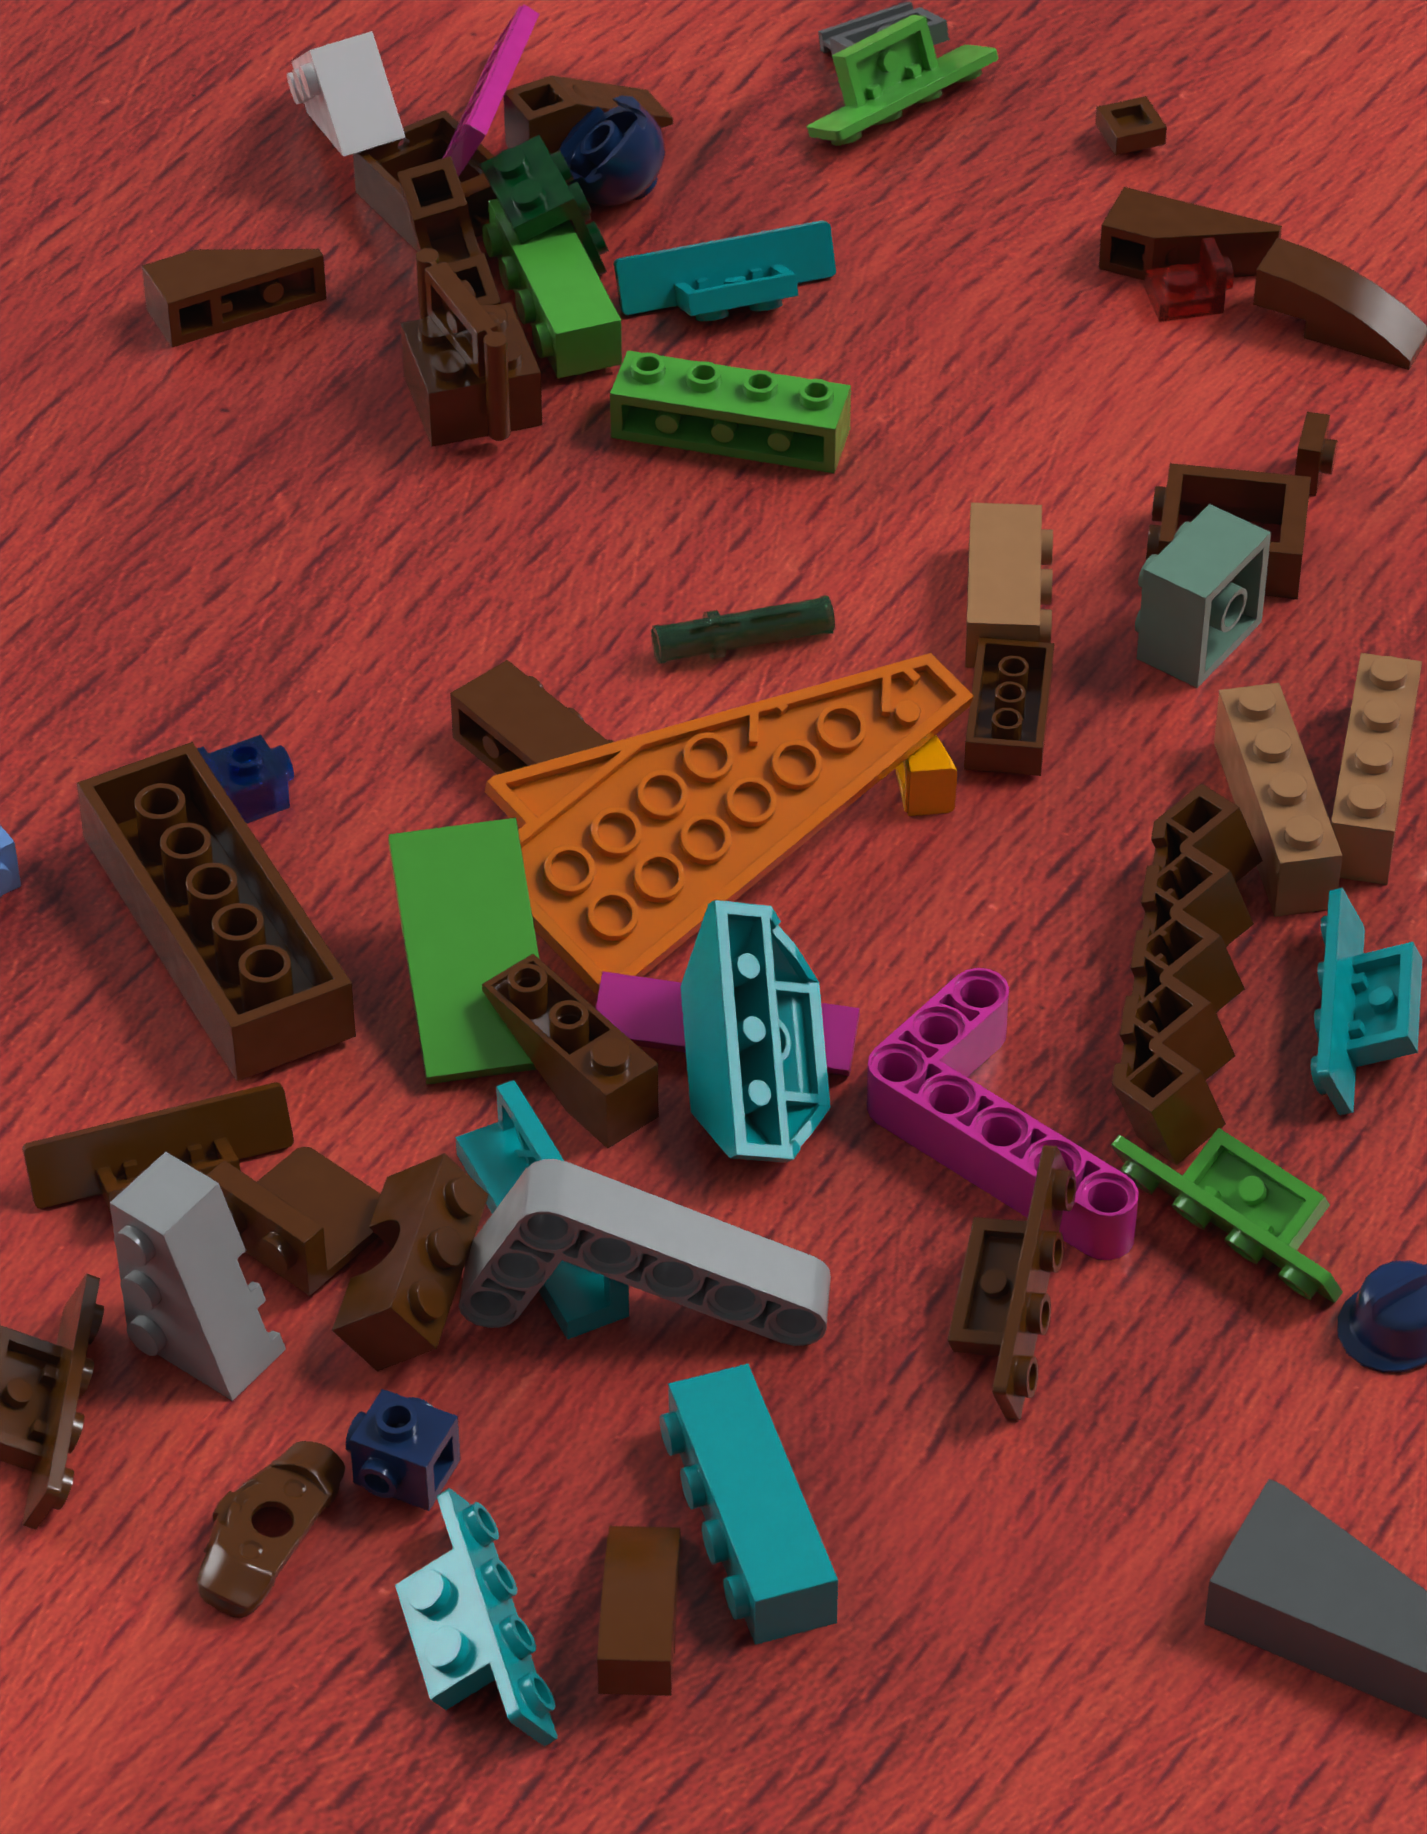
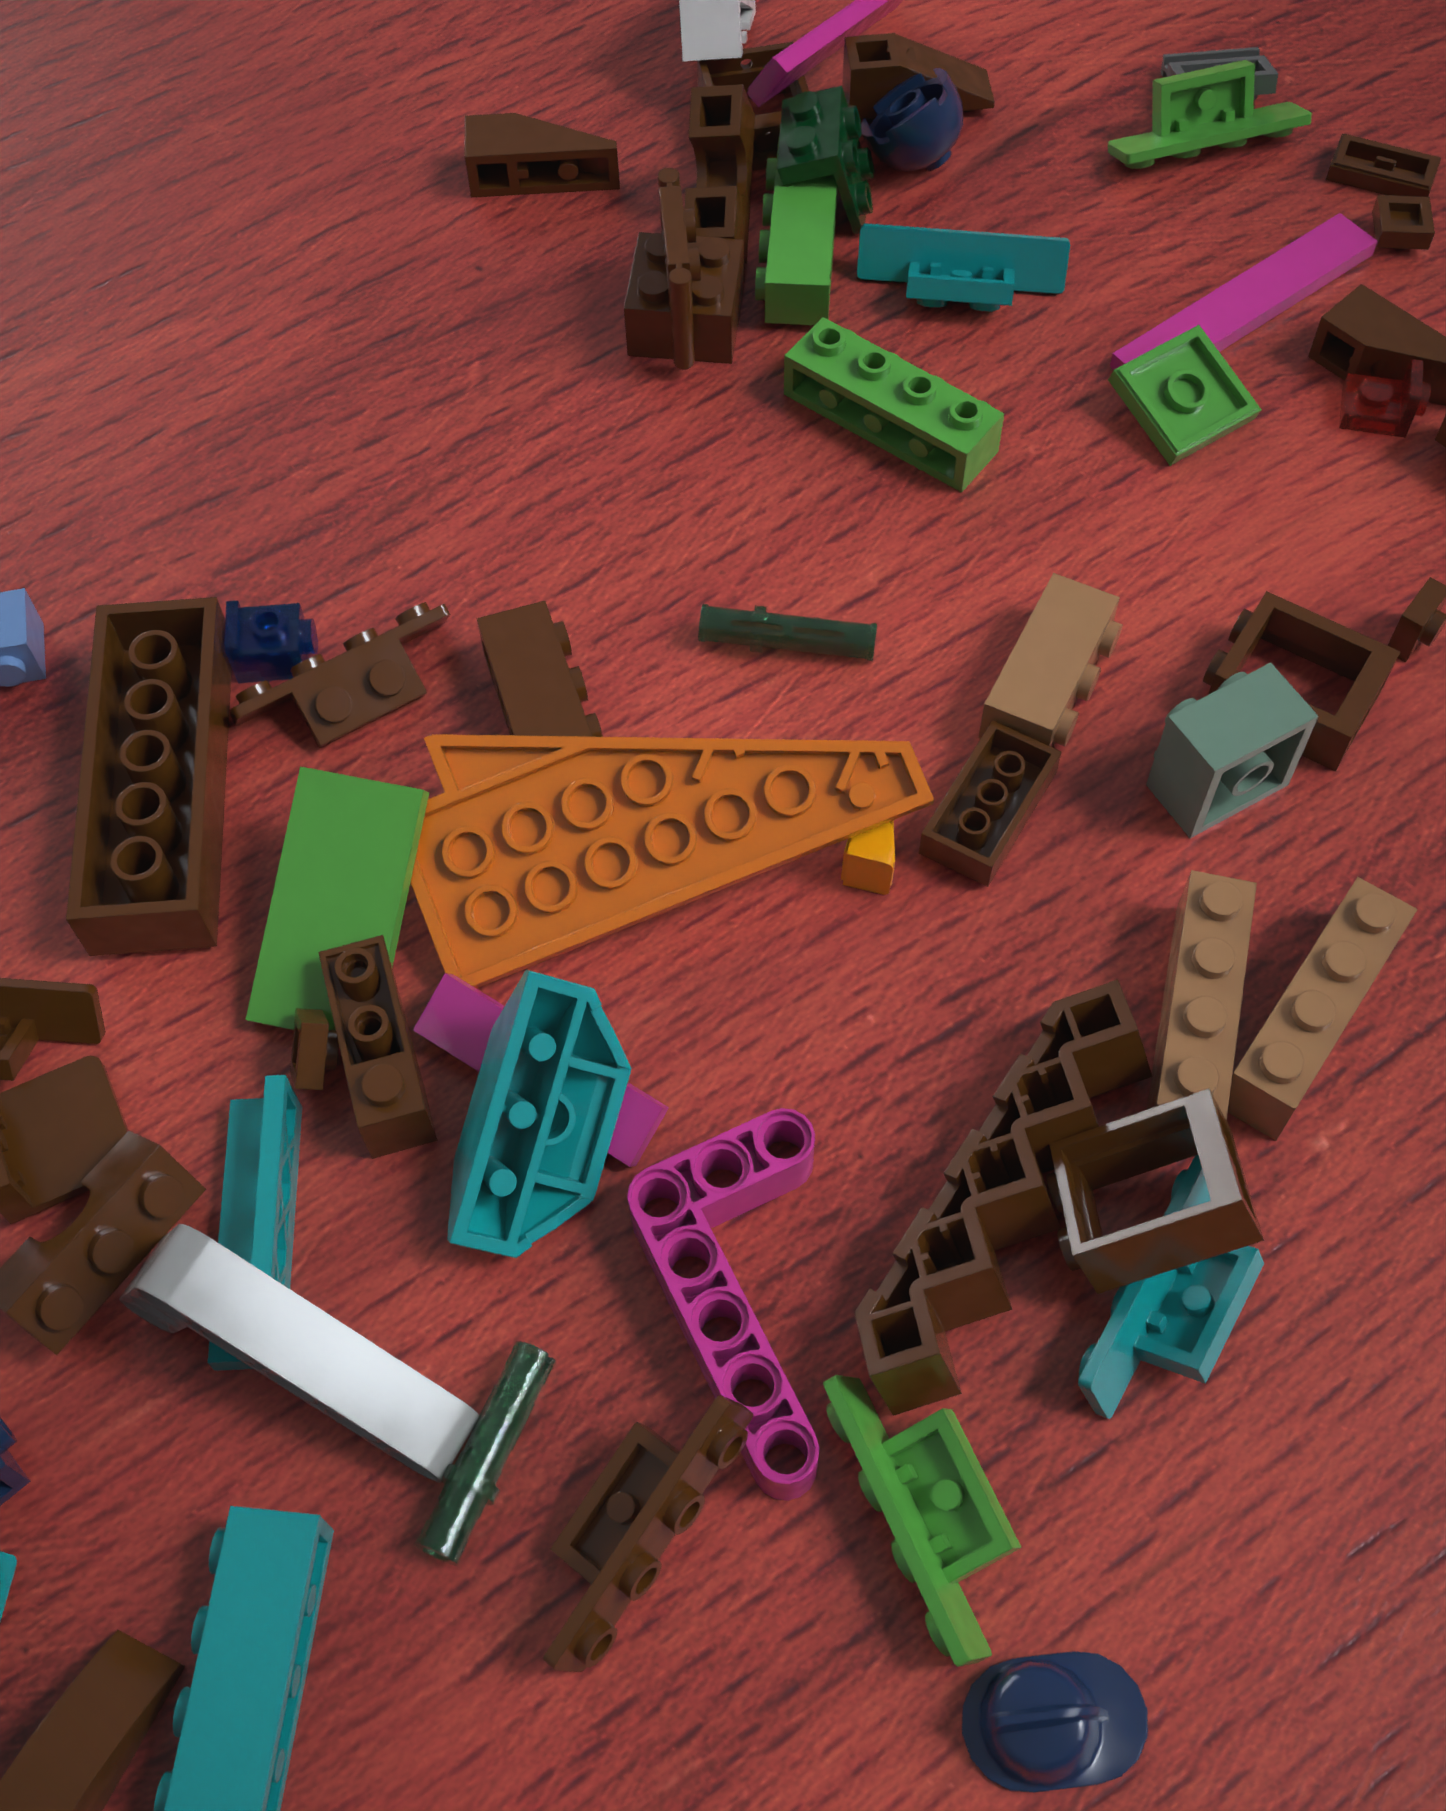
camera: 25 degrees right, 15 degrees up
(354, 792) = (353, 686): none -> reddish brown bracket
(512, 1058) = (312, 1049): none -> reddish brown plate
(851, 1320) = (474, 1476): none -> clear green pin
(1004, 329) = (1184, 394): none -> bright green tile
(1015, 238) = (1264, 288): none -> dark pink tile
(1084, 82) = (1382, 167): none -> reddish brown tile
(1287, 895) = (1137, 1146): none -> reddish brown window

